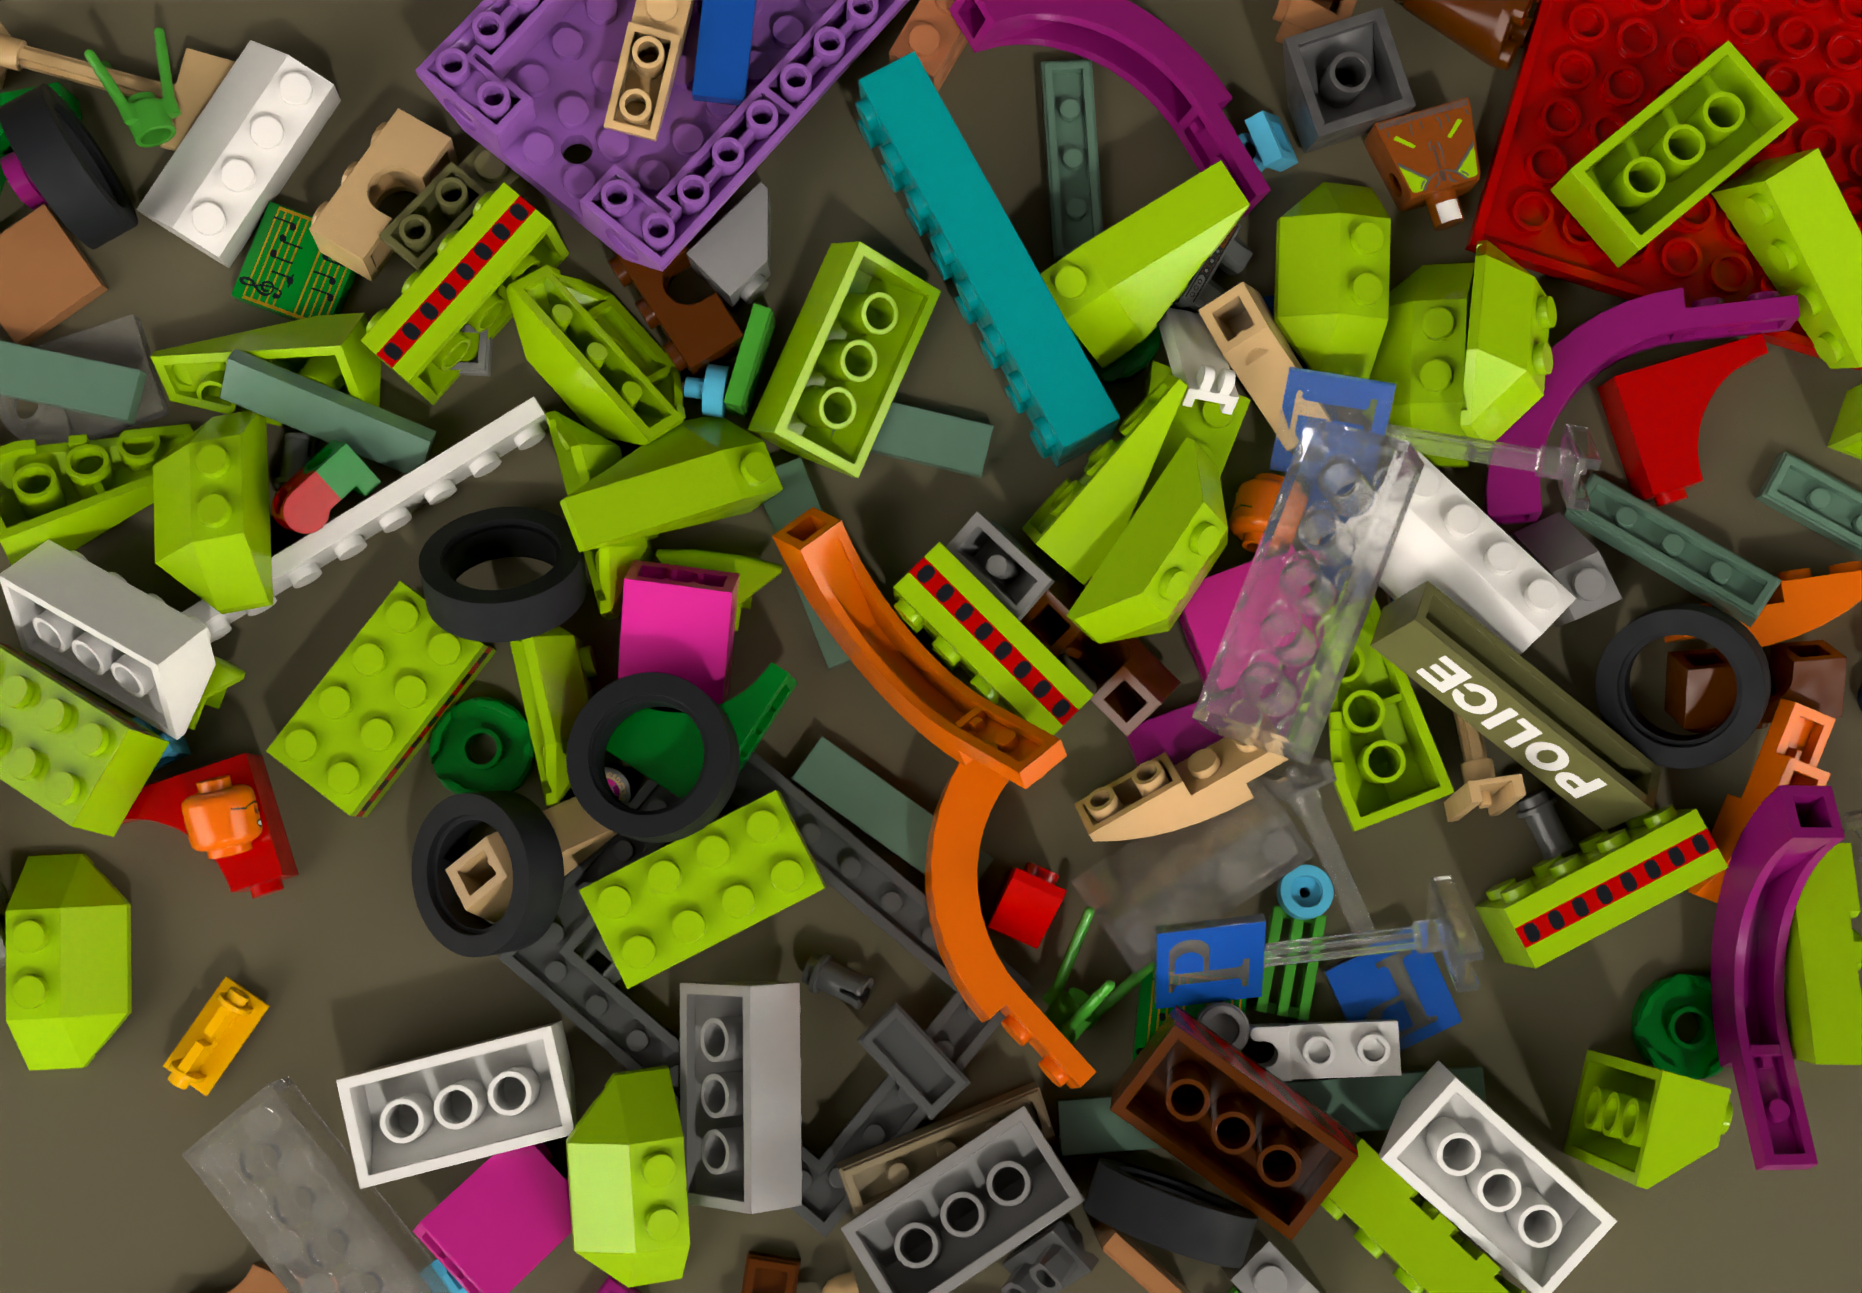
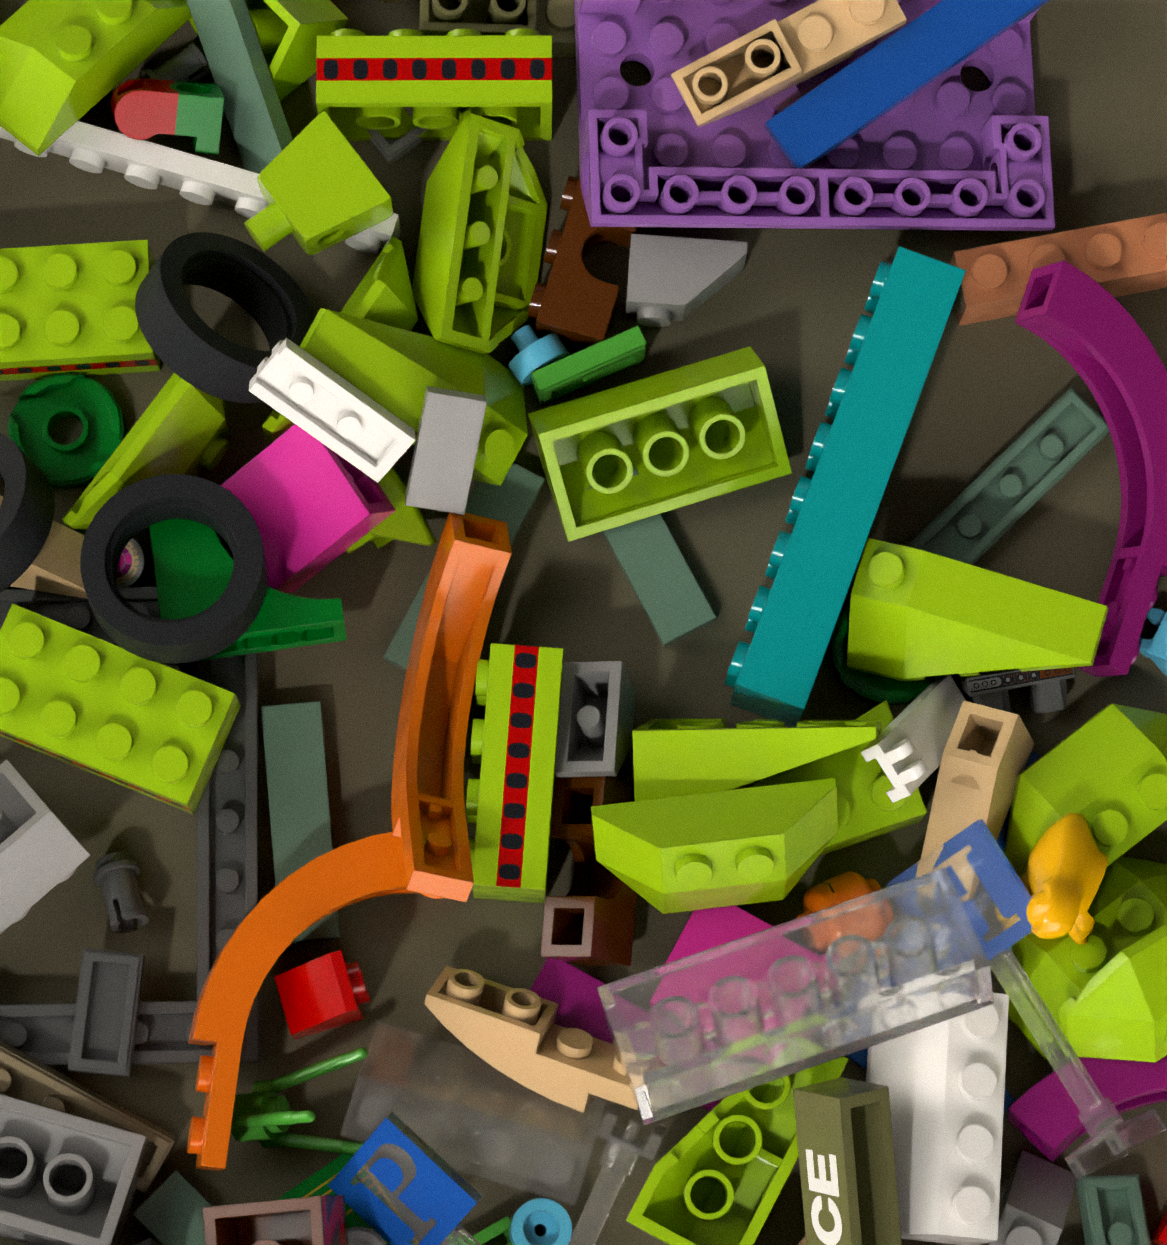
camera: 50 degrees right, 5 degrees down
(471, 435) = (318, 192): none -> lime torso
(636, 555) = (331, 409): none -> white hinge
(731, 503) = (445, 450): none -> light grey tile
(1379, 347) = (1064, 879): none -> yellow head

